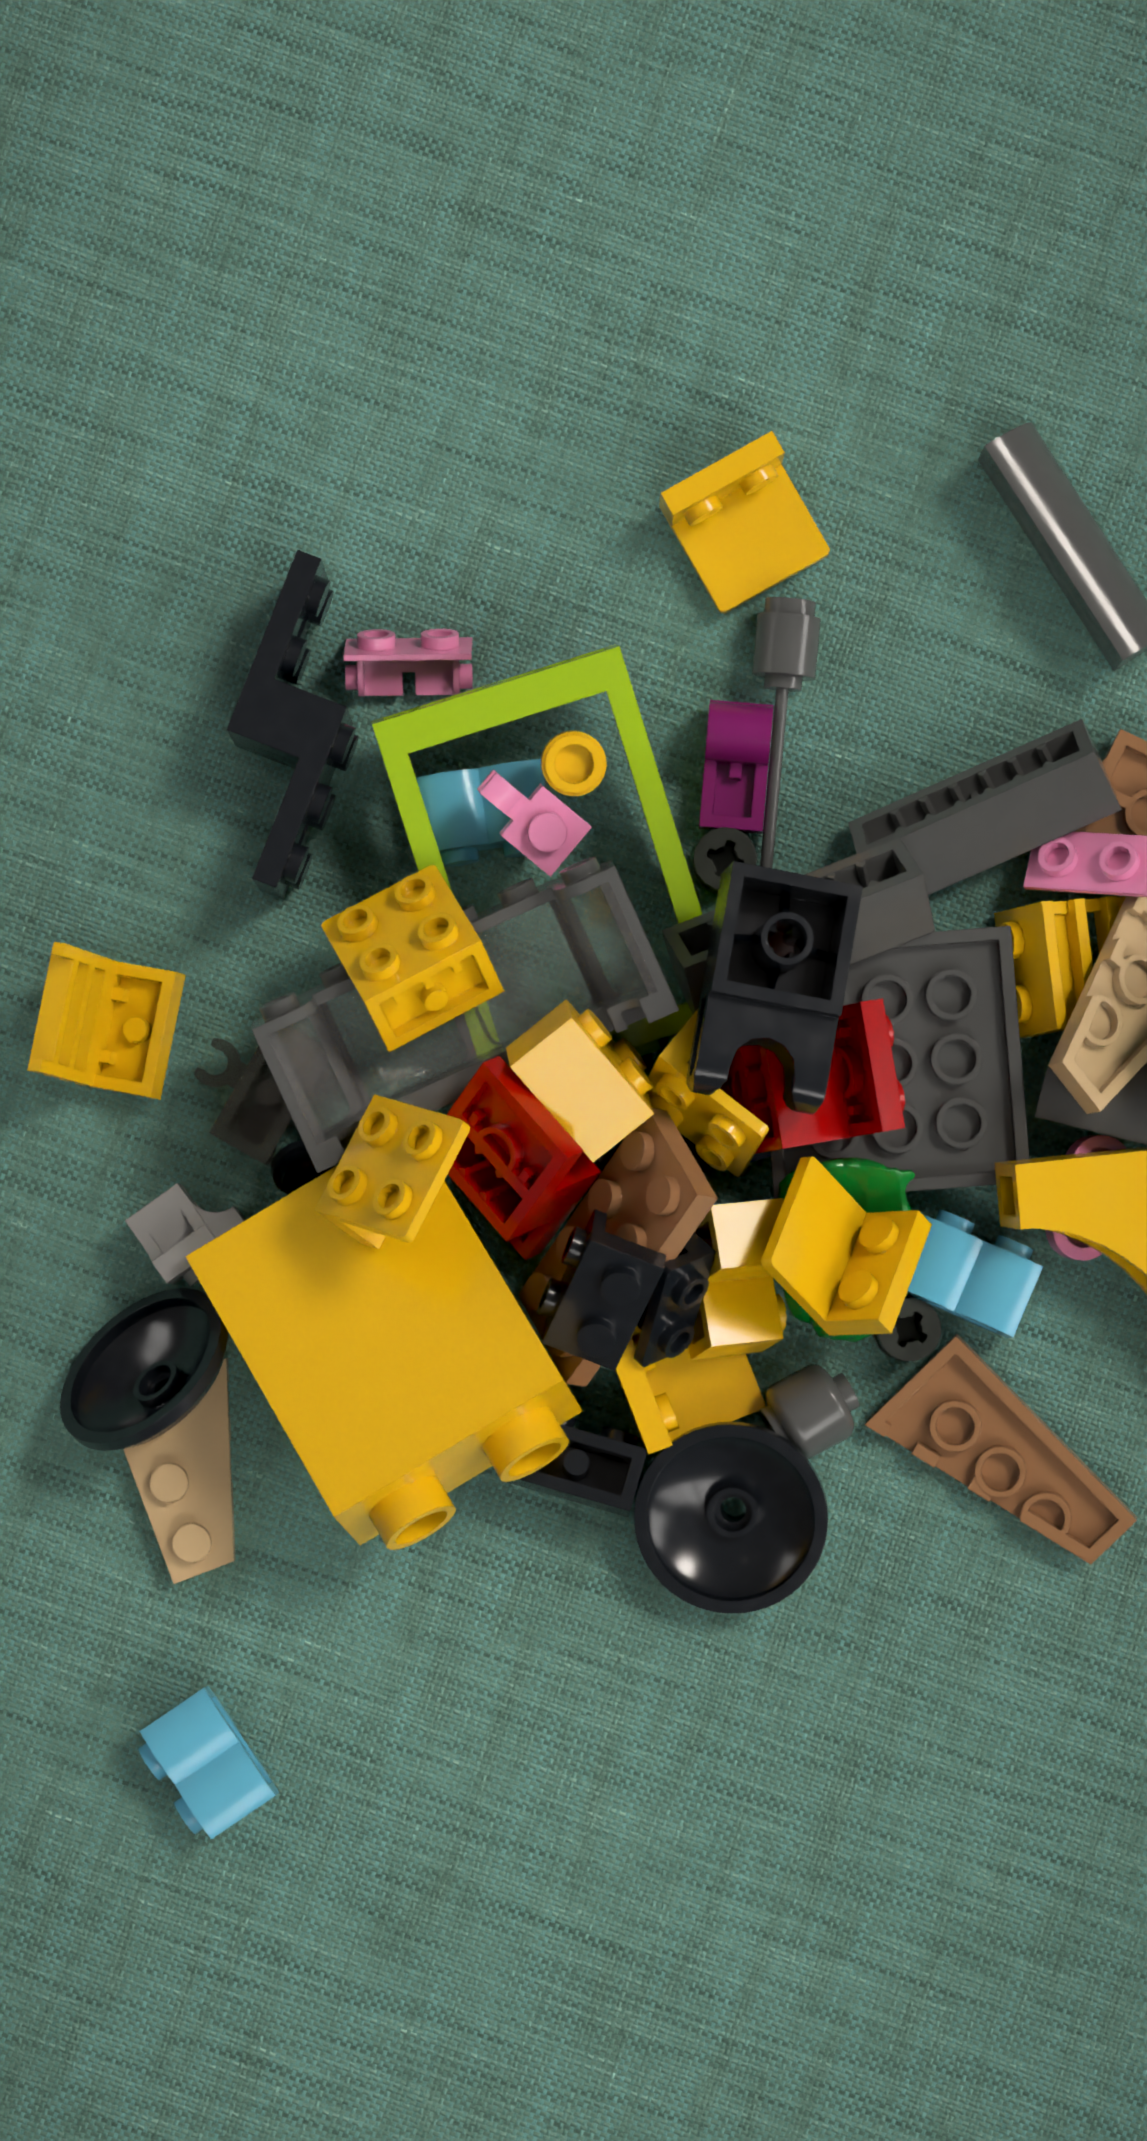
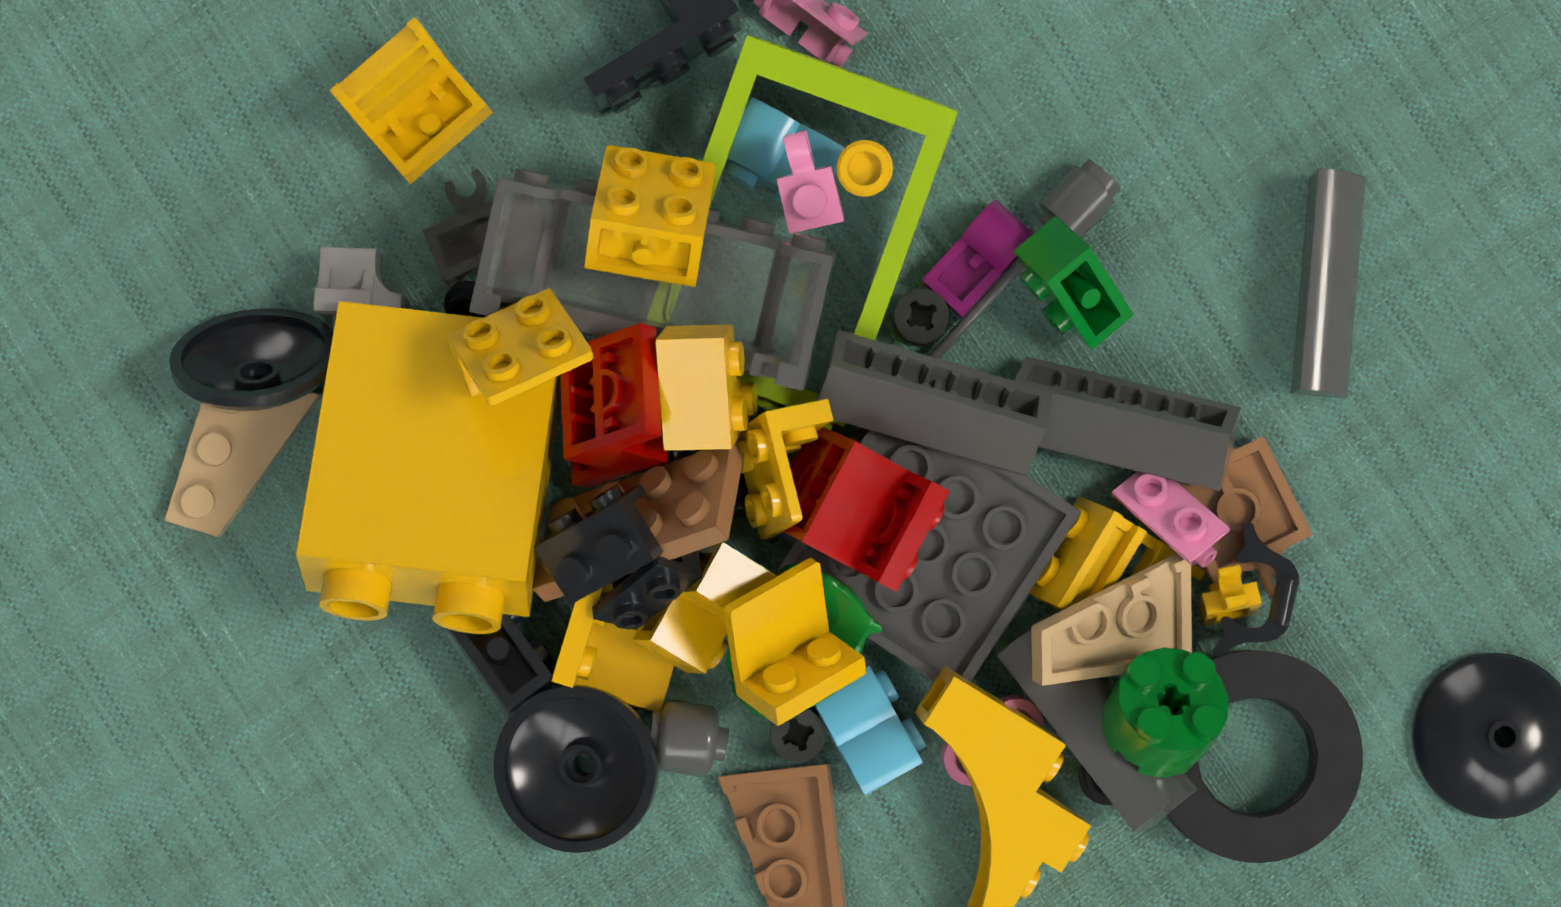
camera: 40 degrees right, 0 degrees up
(206, 1763) = (92, 659): medium azure brick -> none
(743, 524) = (1112, 96): yellow bracket -> none
(771, 999) = (871, 432): black brick -> none
(842, 723) = (1072, 282): none -> green brick

